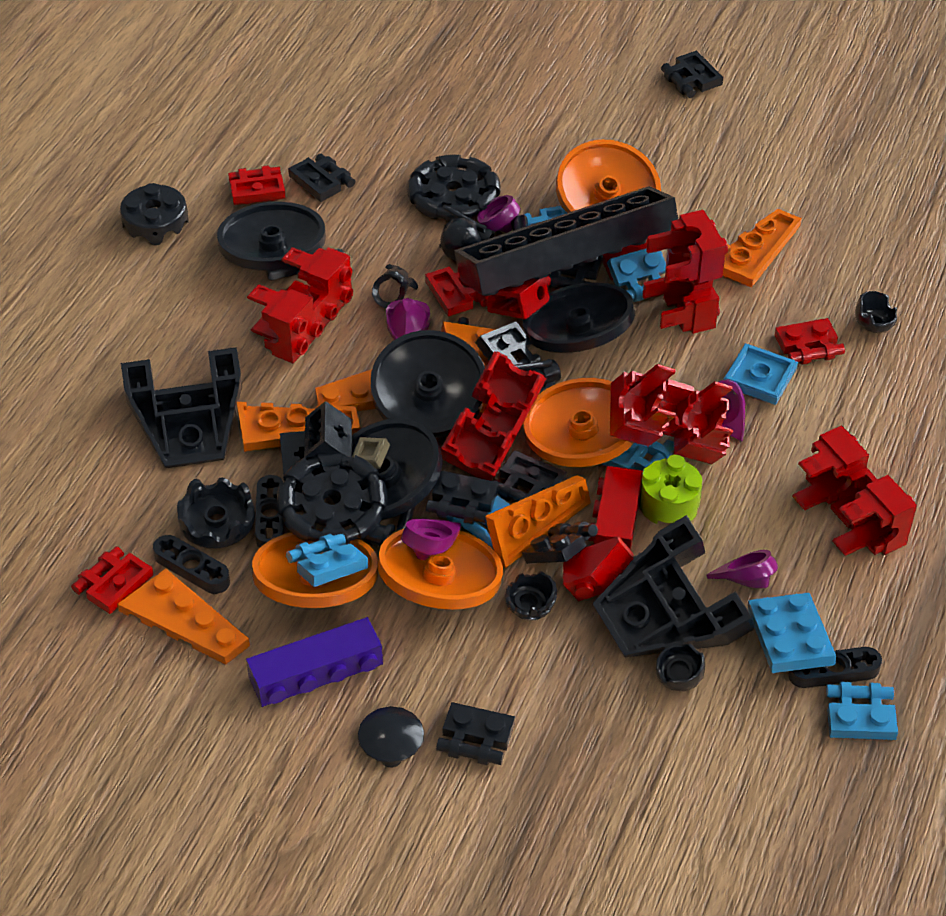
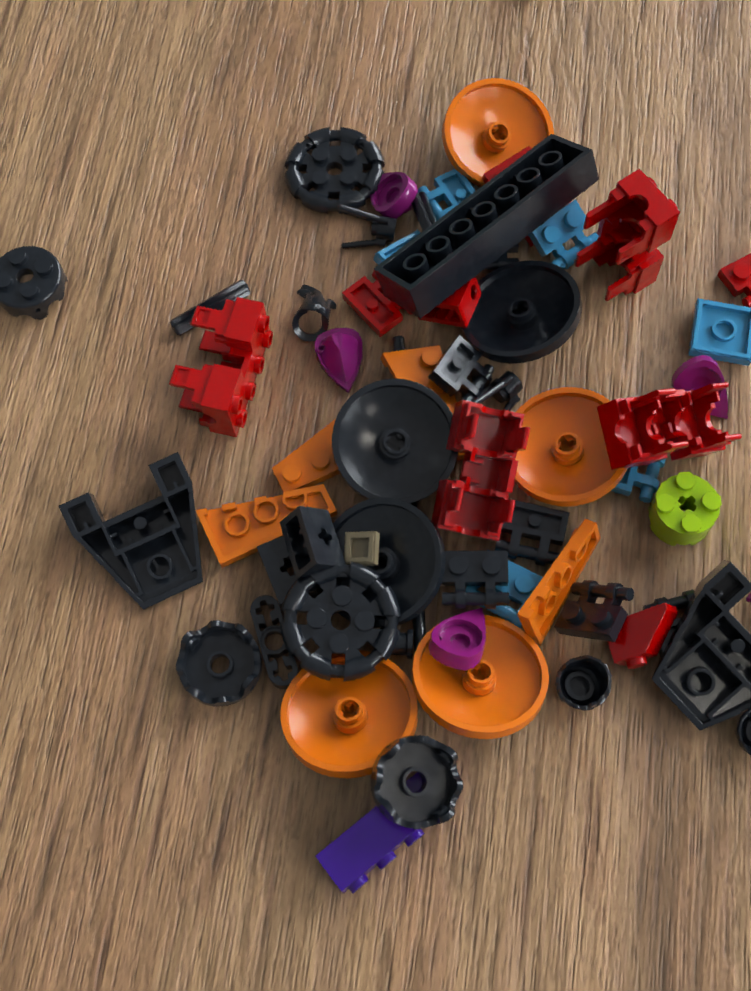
camera: 10 degrees left, 20 degrees up
(119, 582) = (143, 780): red plate -> none
(185, 616) = (222, 800): orange wing -> none
(197, 575) = (192, 714): black beam -> none
(256, 185) = (127, 222): red plate -> none
(266, 231) = (162, 282): black dish -> none
(316, 178) = (188, 196): black plate -> none
(333, 564) = (369, 713): dark azure plate -> none
(355, 593) = (440, 782): none -> black plate
(391, 735) = (491, 897): black dish -> none
(458, 234) = (364, 238): black hair -> none
(479, 727) = (578, 860): black plate -> none
(618, 504) = (636, 546): red brick -> none
(758, 248) = (675, 160): orange wing -> none

